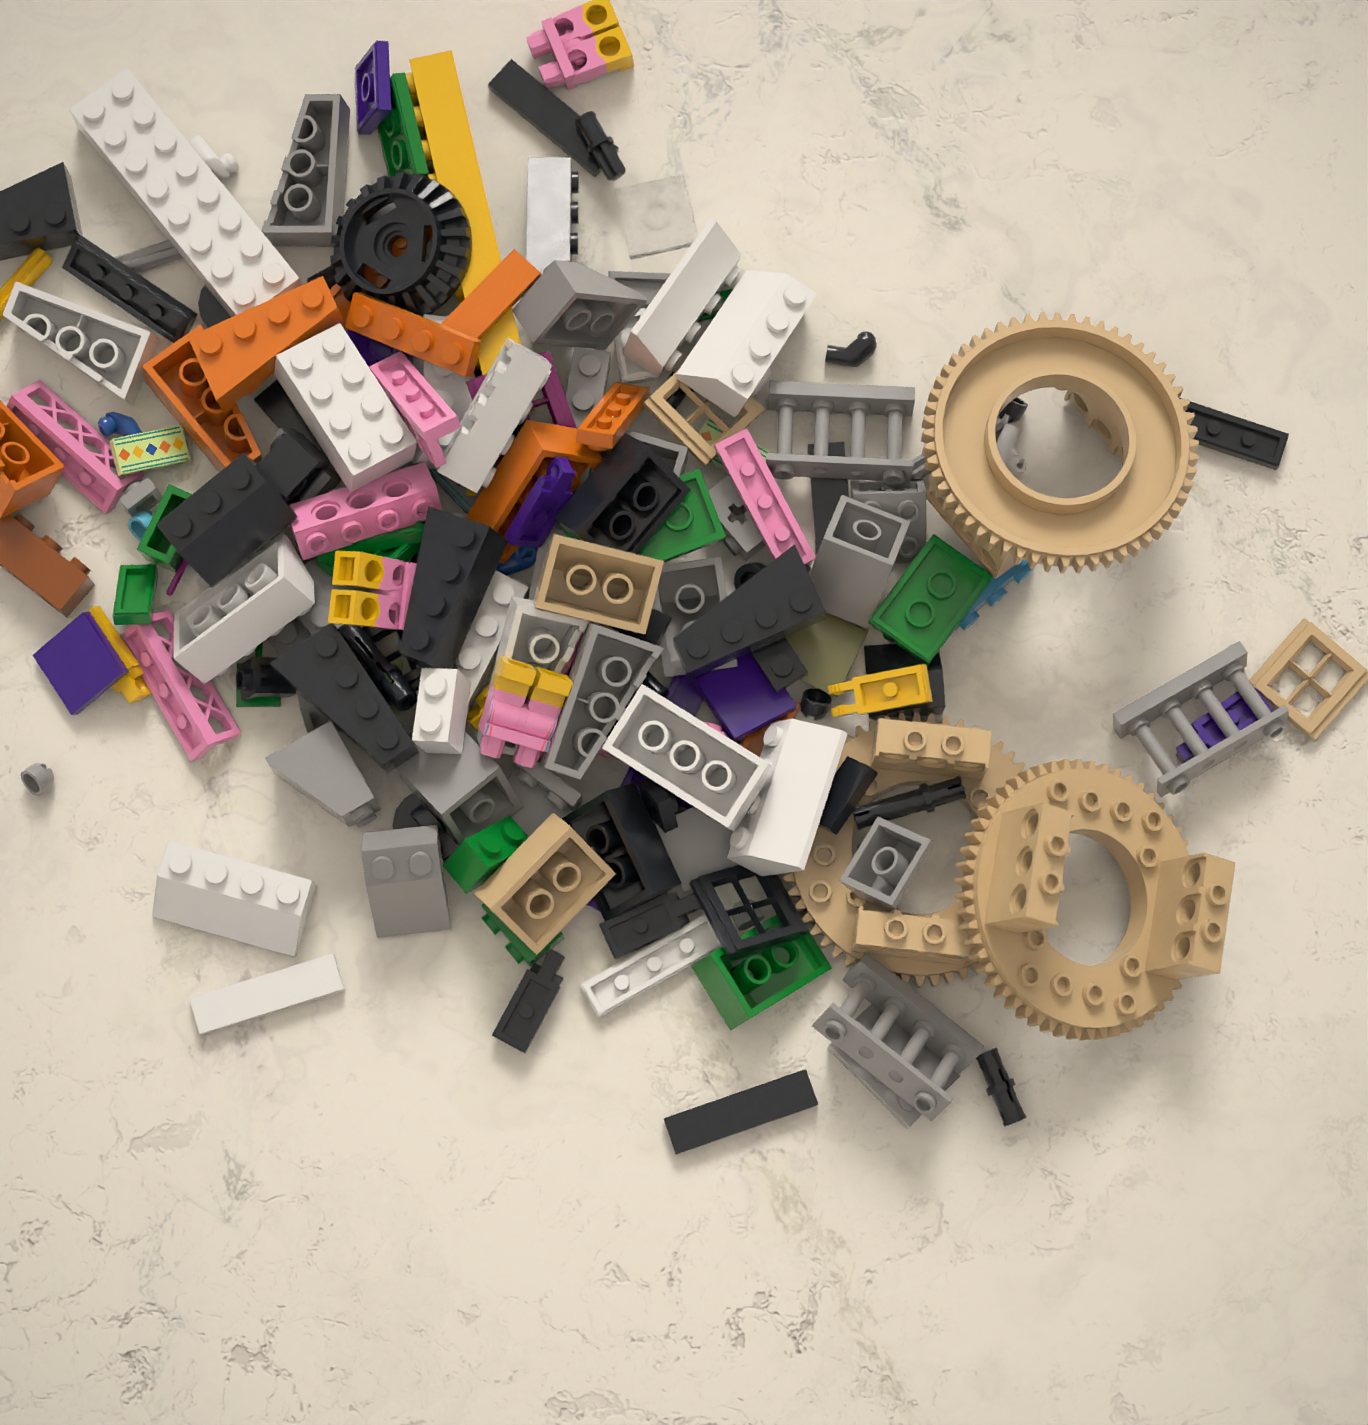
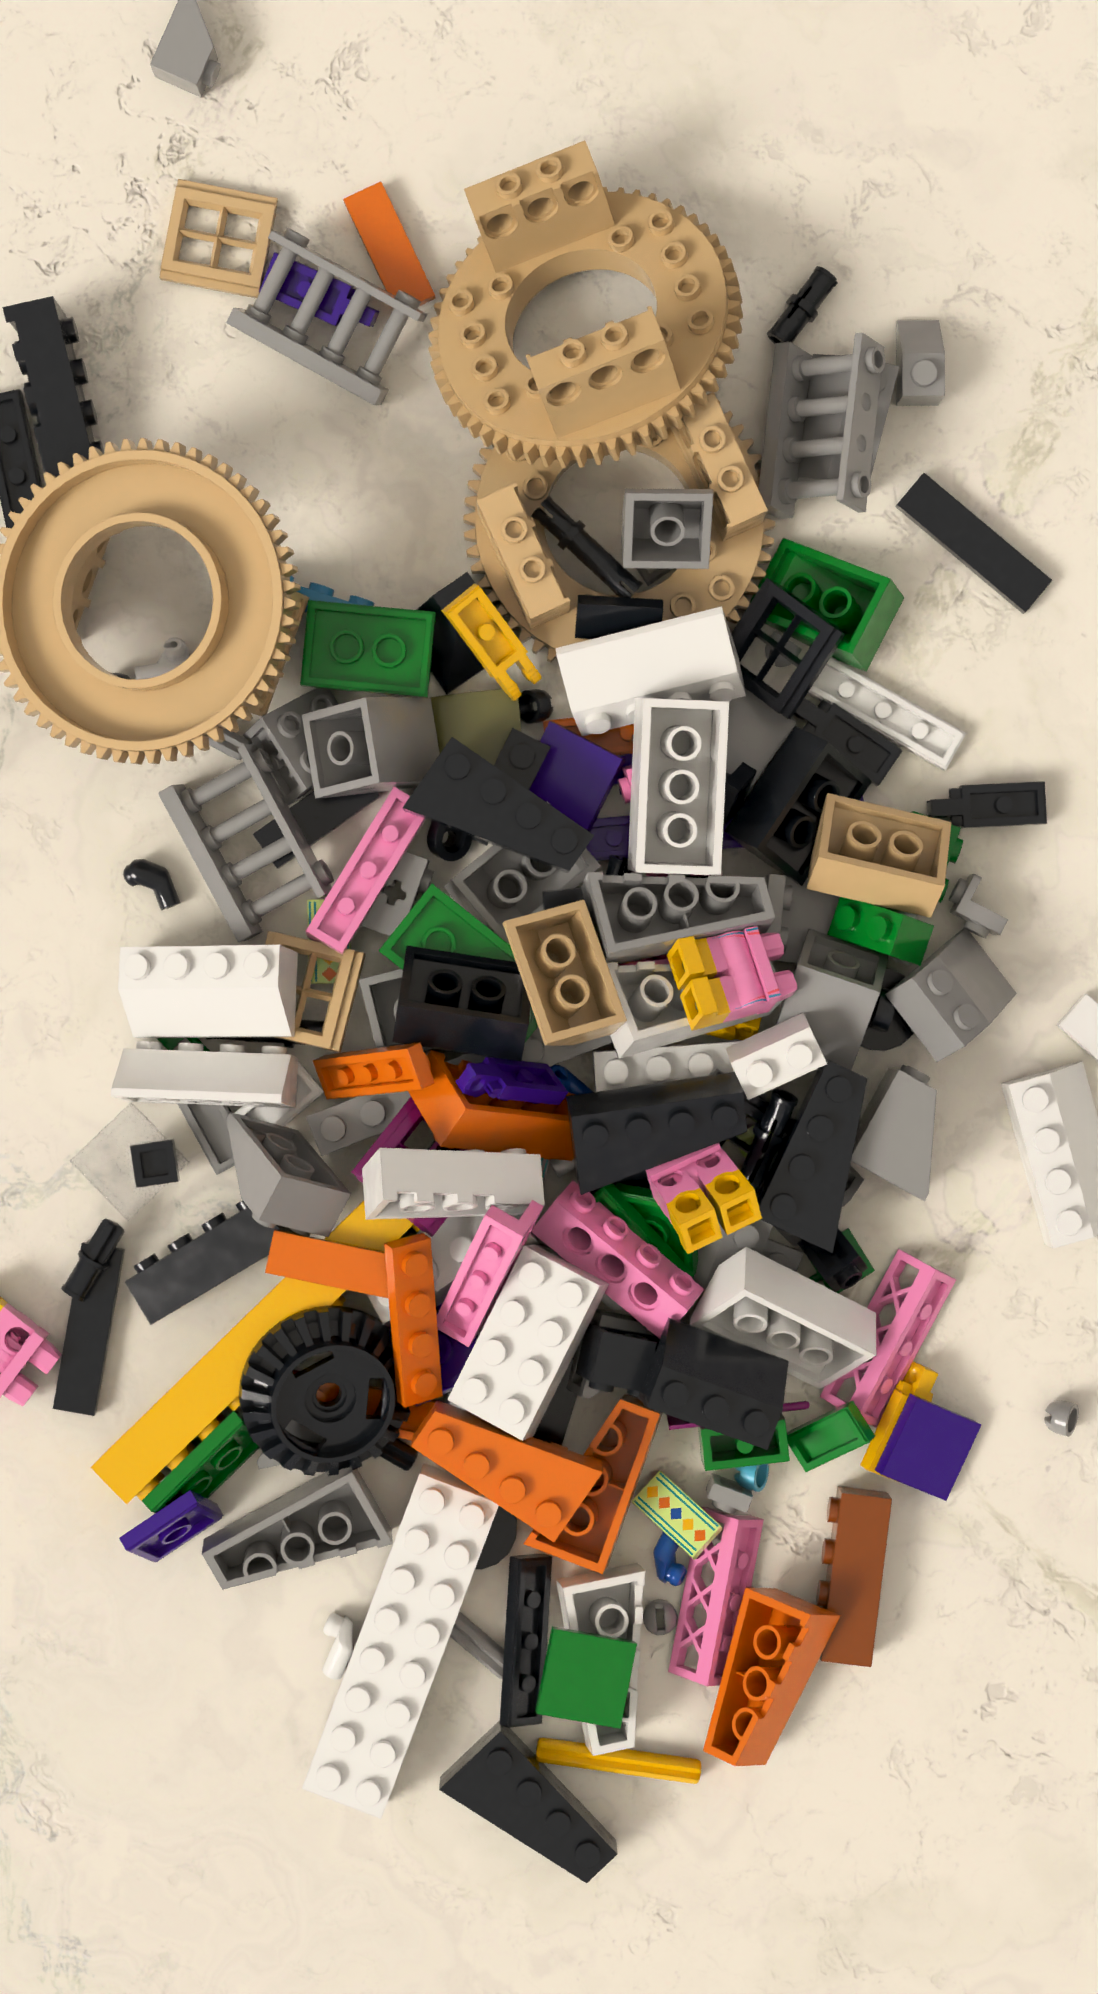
camera: 115 degrees left, 10 degrees up
(75, 308) = (586, 1677): none -> green tile
(80, 404) = (649, 1617): none -> light grey hinge
(452, 939) = (978, 918): none -> light grey bracket
(643, 229) = (155, 1163): none -> black plate
(906, 1152) = (920, 363): none -> light grey slope
(1231, 802) = (388, 243): none -> orange tile
(1263, 490) = (54, 380): none -> black wedge

